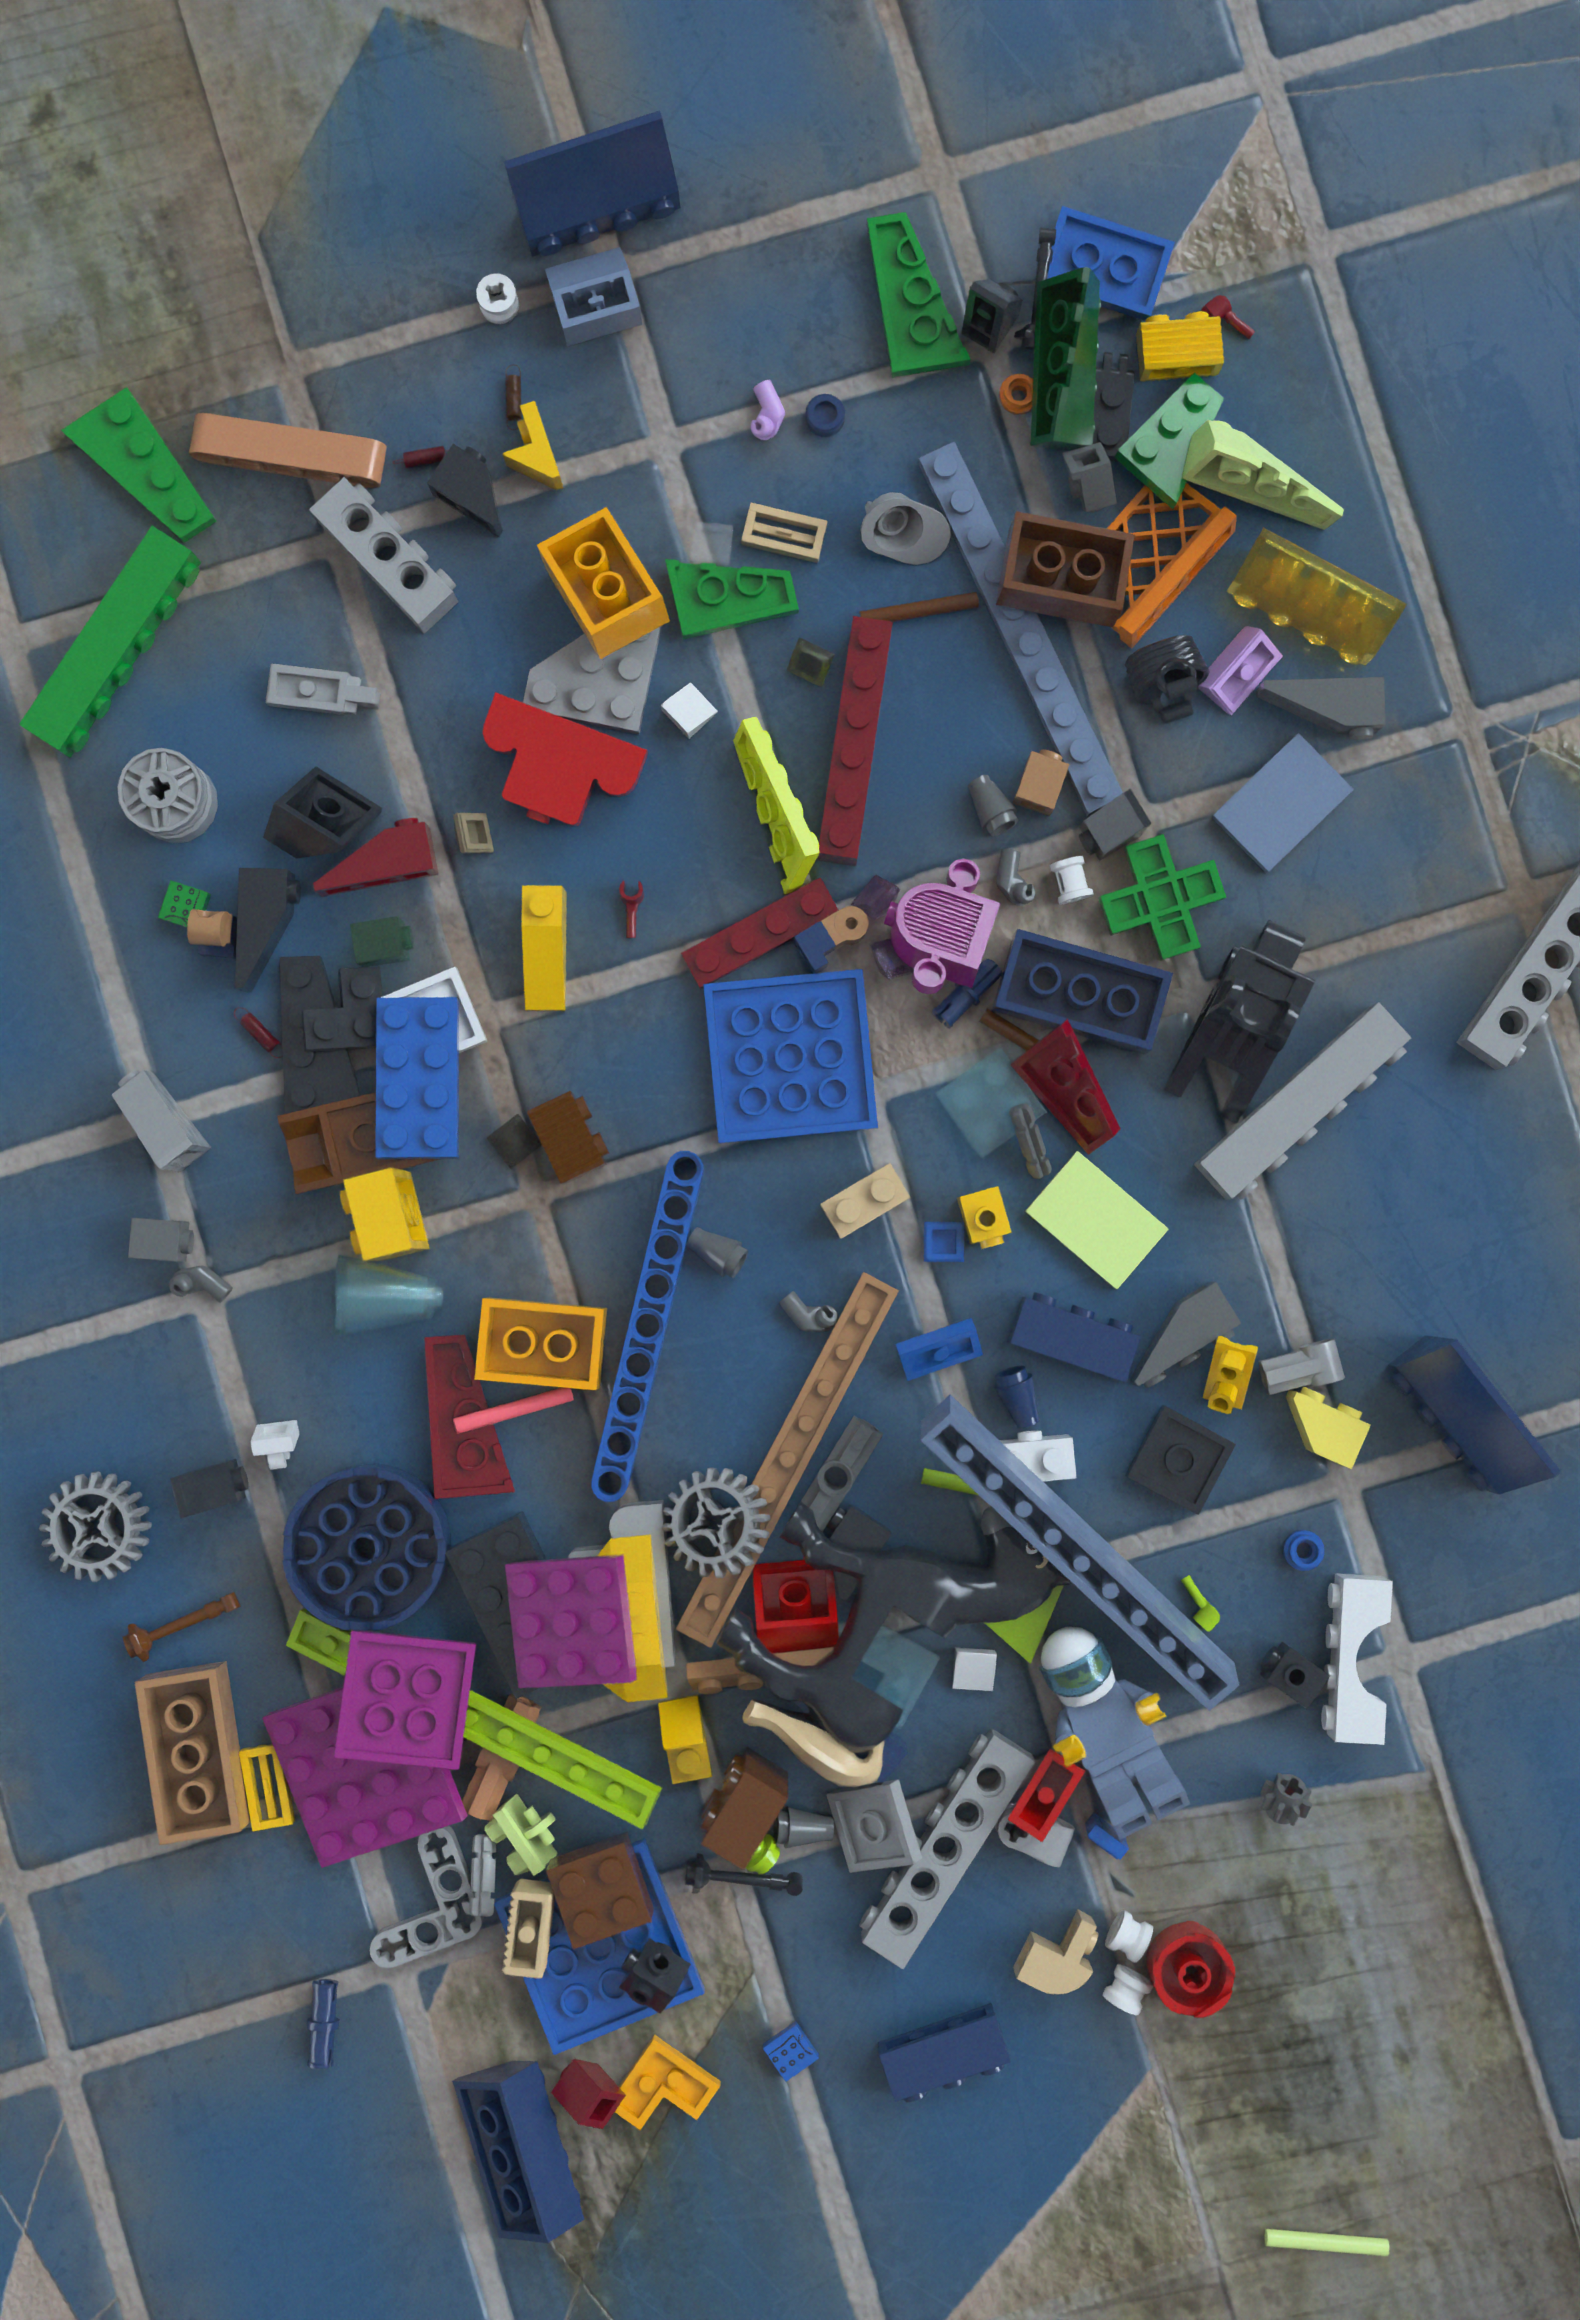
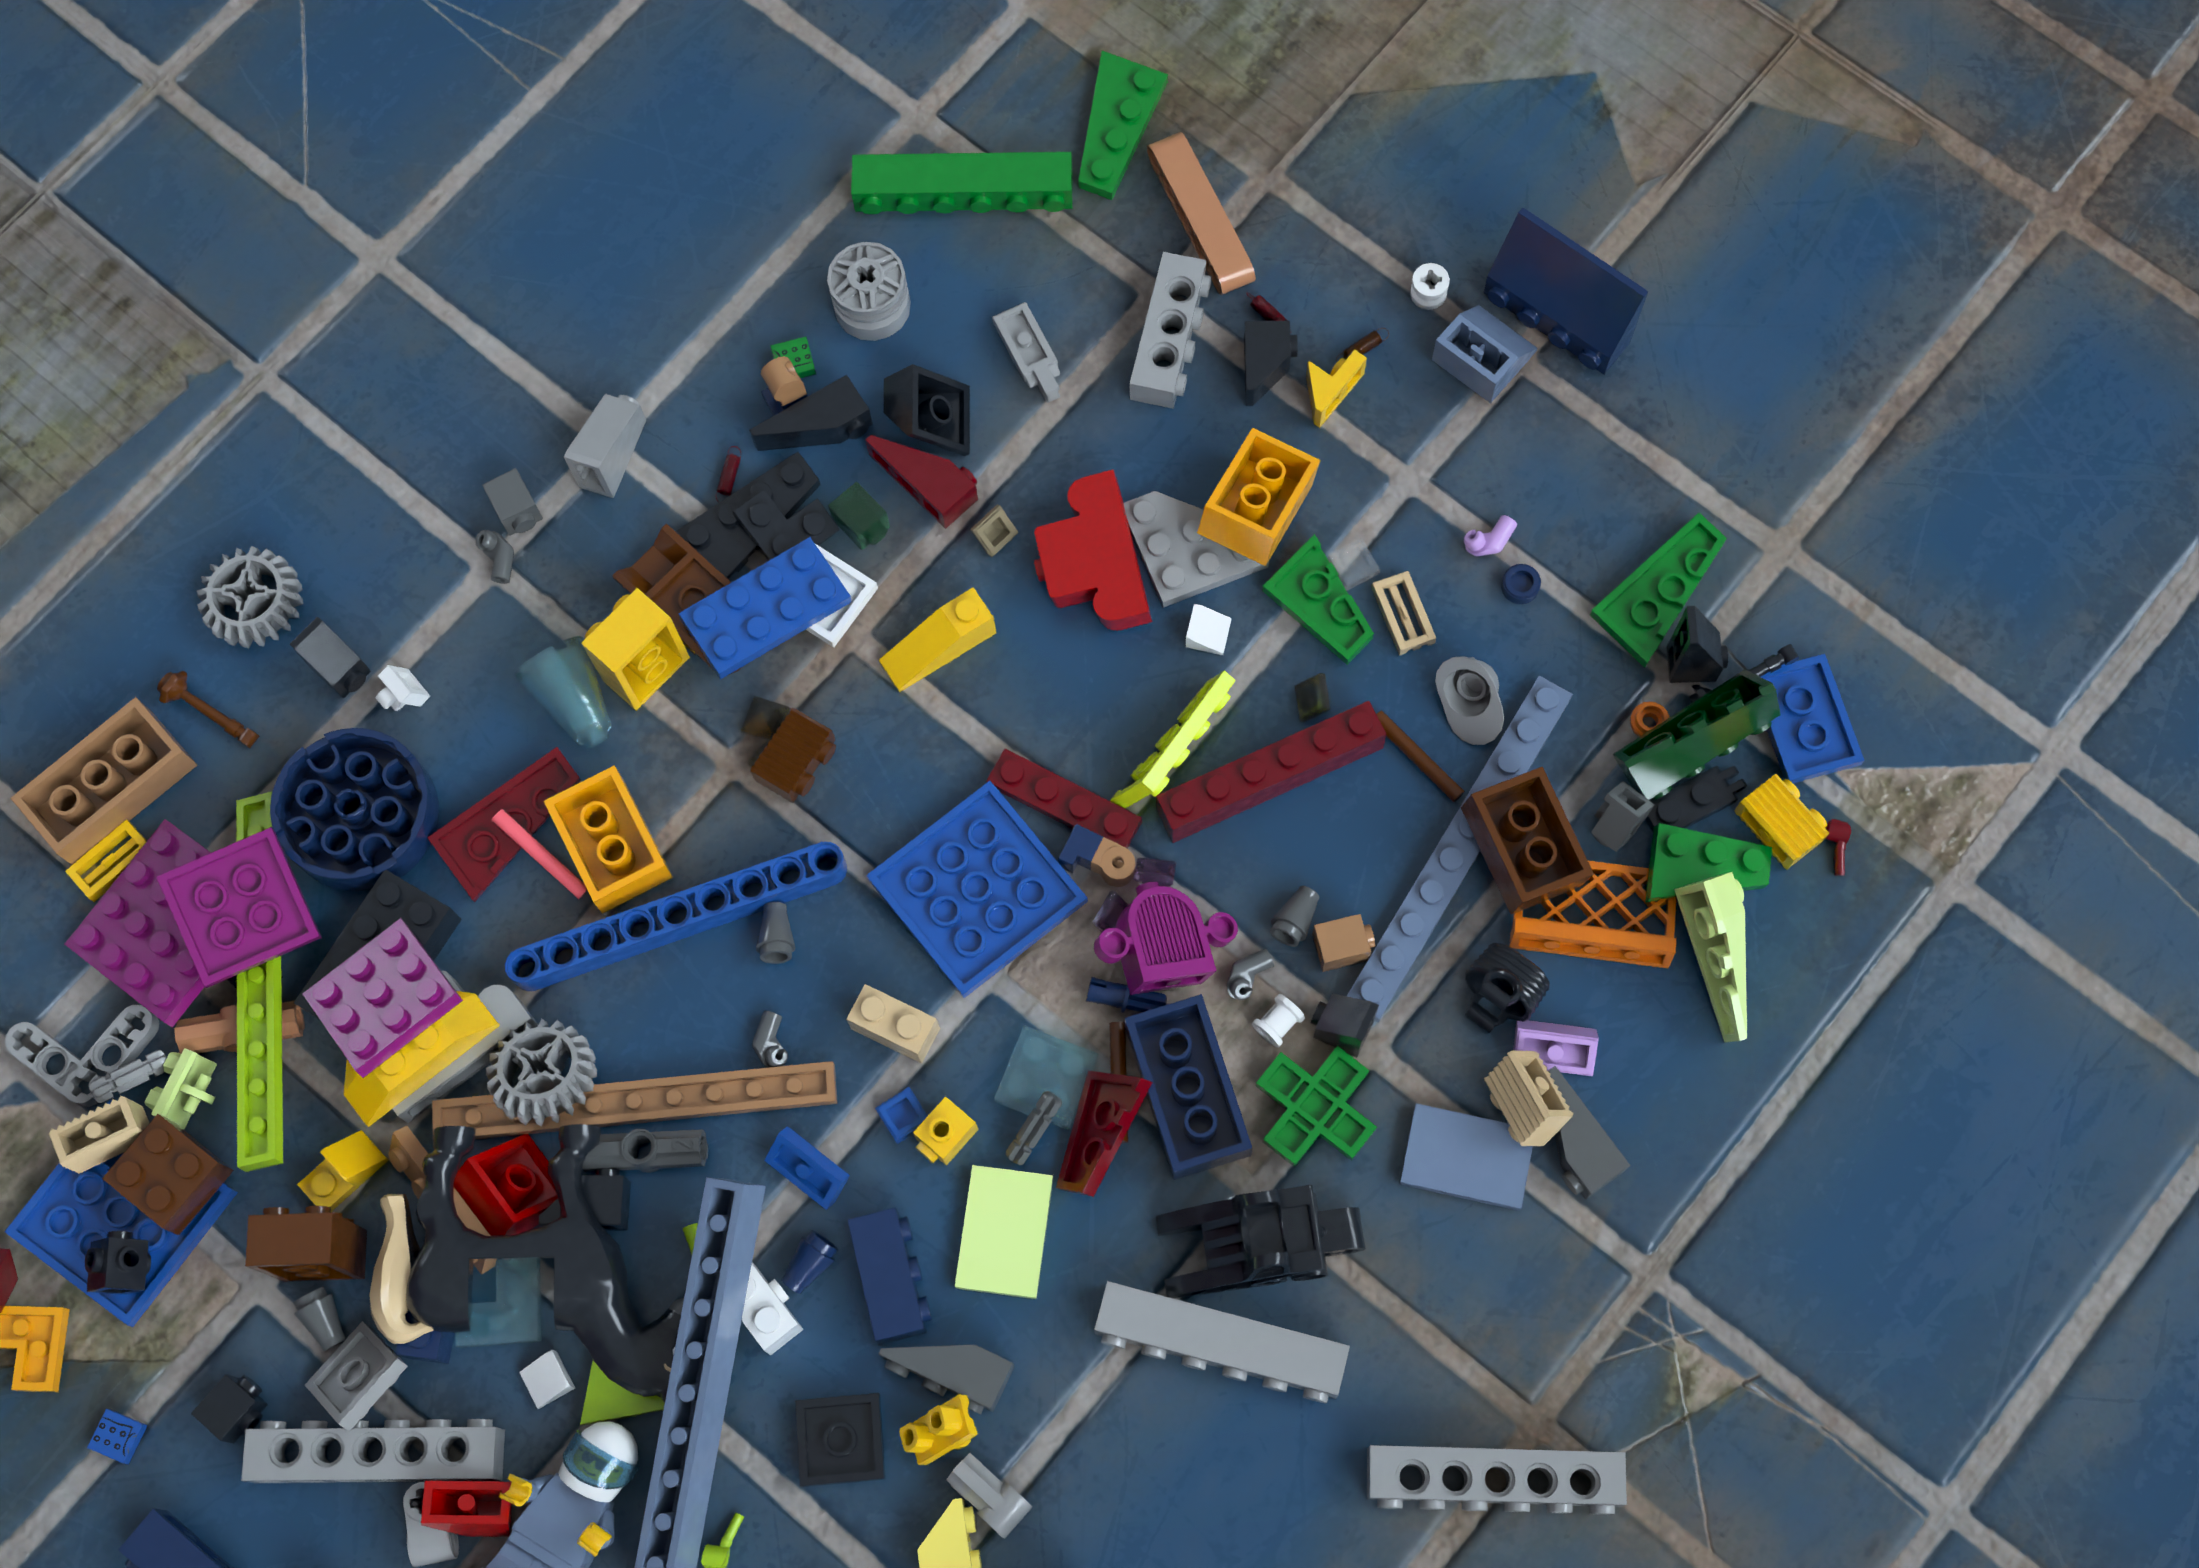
camera: 60 degrees right, 15 degrees down
(631, 908) = (1020, 686): dark red hand -> none
(699, 1874) = (231, 1255): black piece -> none
(765, 1856) = (277, 1296): lime plate -> none
(832, 1944) = (231, 1408): none -> black brick
(1276, 721) = (1527, 1098): none -> tan brick
(1315, 598) = (1654, 1064): clear yellow slope -> none

